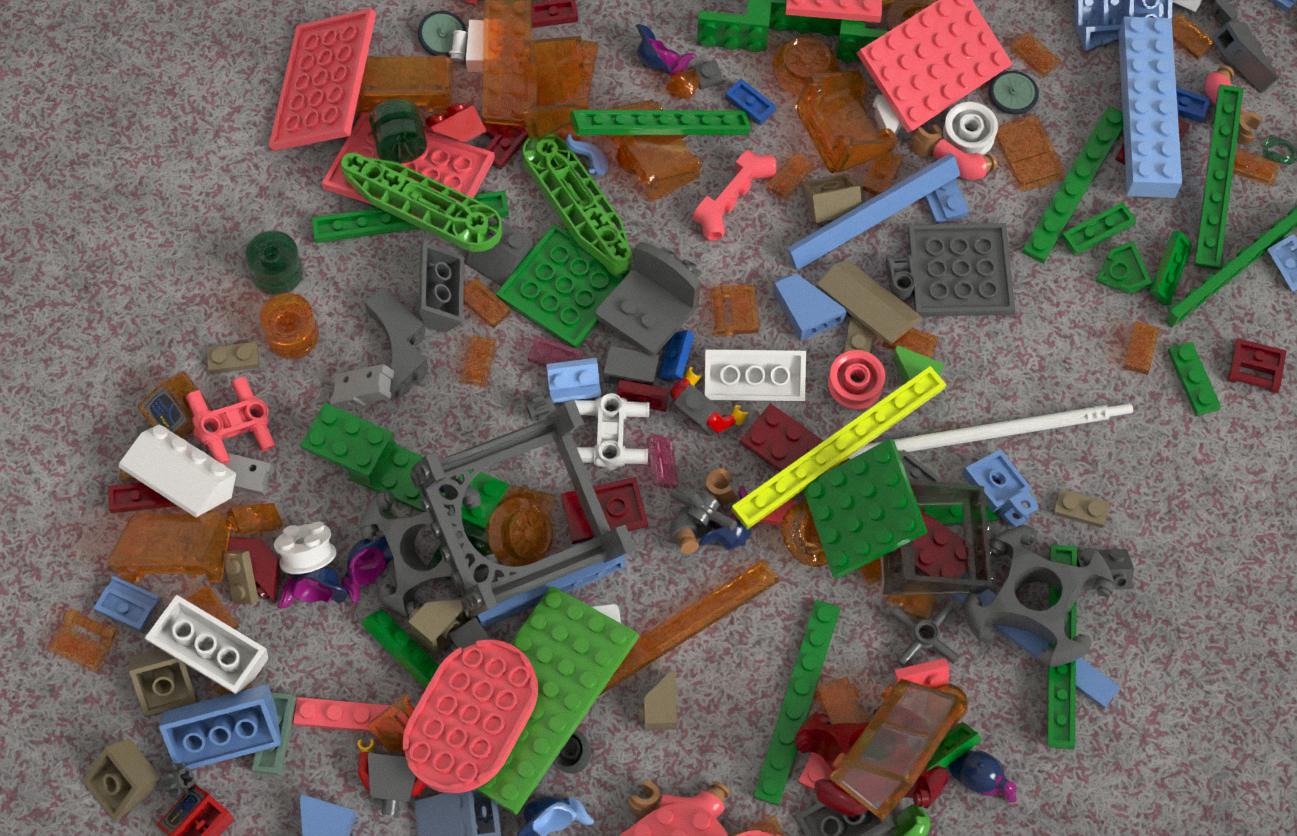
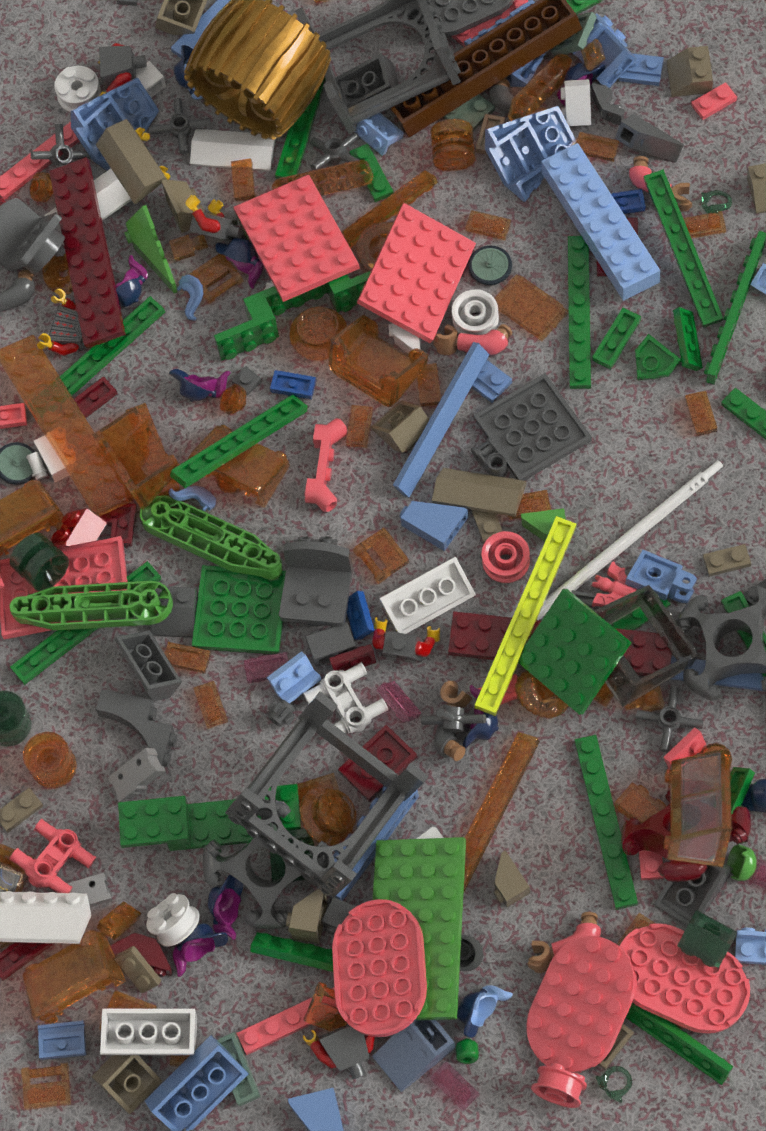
camera: 20 degrees left, 0 degrees up
(947, 472) = (616, 589): none -> coral animal

